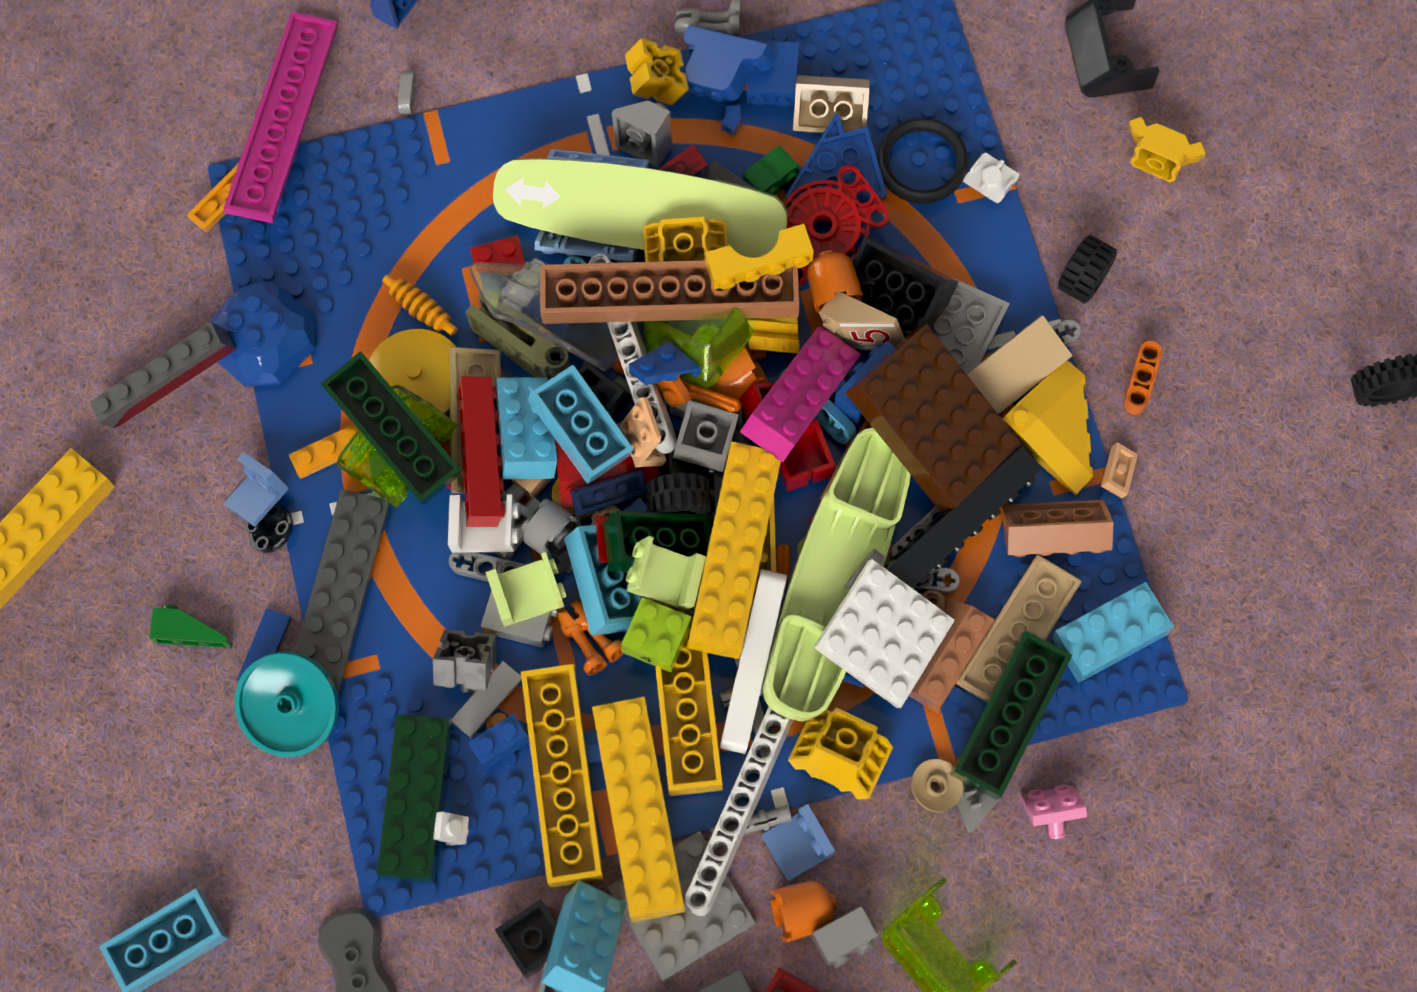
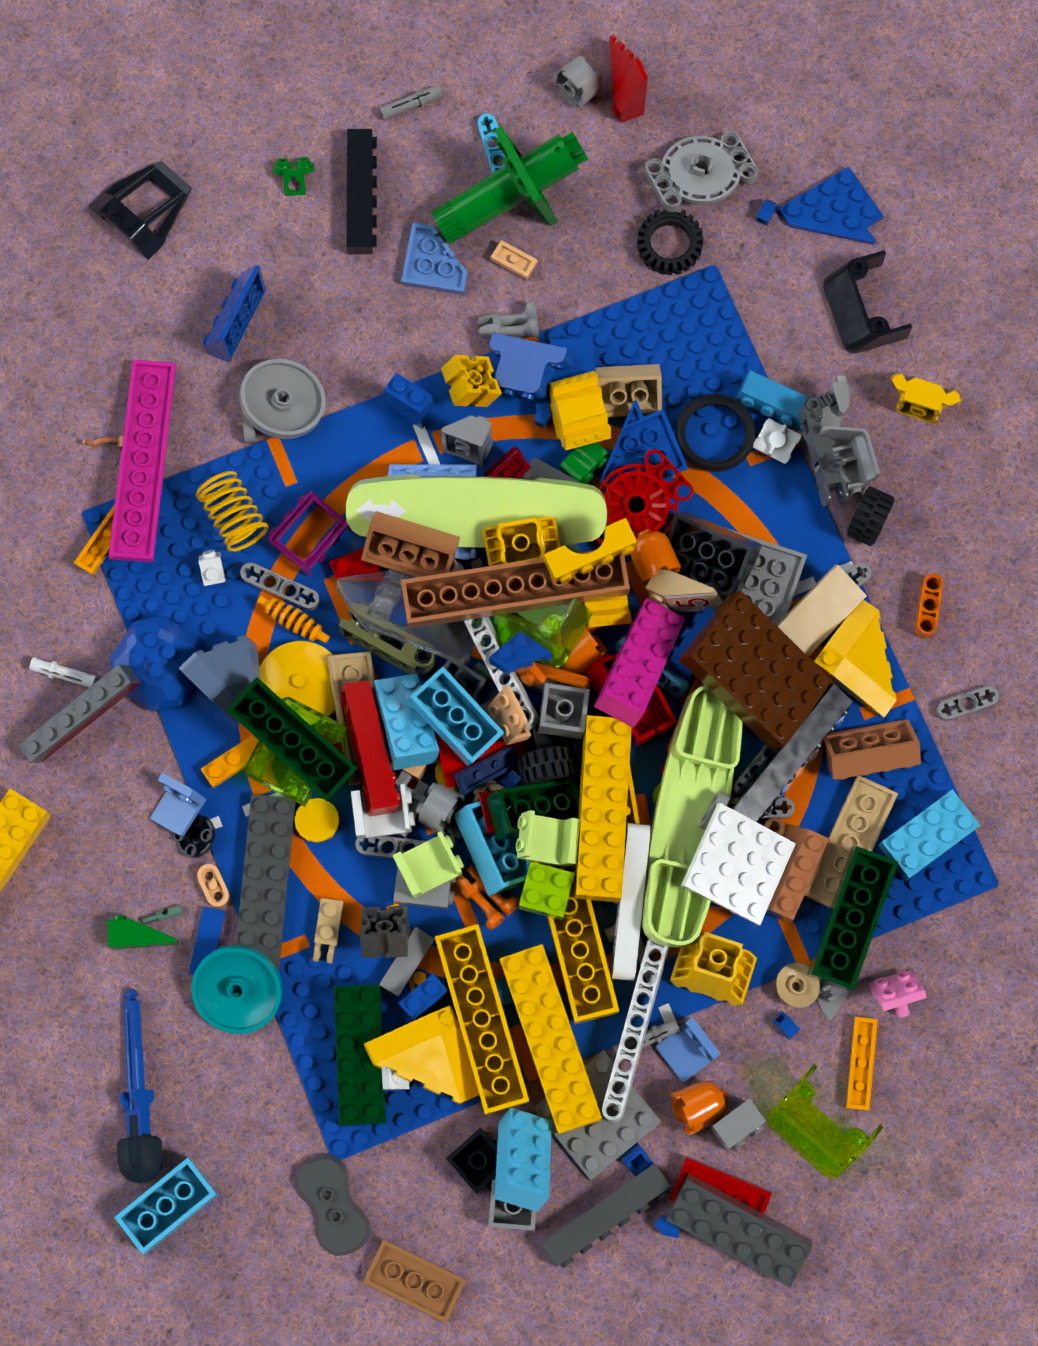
camera: 10 degrees left, 5 degrees up
(144, 877) = (140, 1153): none -> piece
(146, 329) = (62, 672): none -> white pin
(230, 610) = (172, 912): none -> sand green pin
(241, 94) = (104, 440): none -> nougat piece
(281, 587) = (213, 886): none -> light nougat plate
(328, 343) = (224, 670): none -> sand blue brick
(338, 239) = (211, 568): none -> white bracket
(372, 197) = (243, 530): none -> yellow piece
(403, 650) = (328, 927): none -> tan hinge
(410, 528) = (317, 820): none -> yellow tile
(413, 265) = (281, 583): none -> light grey beam
(435, 196) = (318, 553): none -> magenta window
(446, 70) = (282, 398): none -> light grey dish
(494, 803) = (430, 1053): none -> yellow slope
(556, 233) = (409, 546): none -> nougat slope
(584, 84) = (409, 400): none -> blue brick
(719, 962) = (636, 1157): none -> blue slope
(772, 116) = (579, 411): none -> yellow slope
(917, 830) = (785, 1025): none -> blue piece
(1001, 887) = (861, 1063): none -> light orange plate
(1002, 137) = (772, 399): none -> dark azure brick
(1059, 193) = (839, 455): none -> piece
(1119, 470) = (918, 691): light nougat plate -> none
(1195, 494) = (971, 695): none -> light grey beam

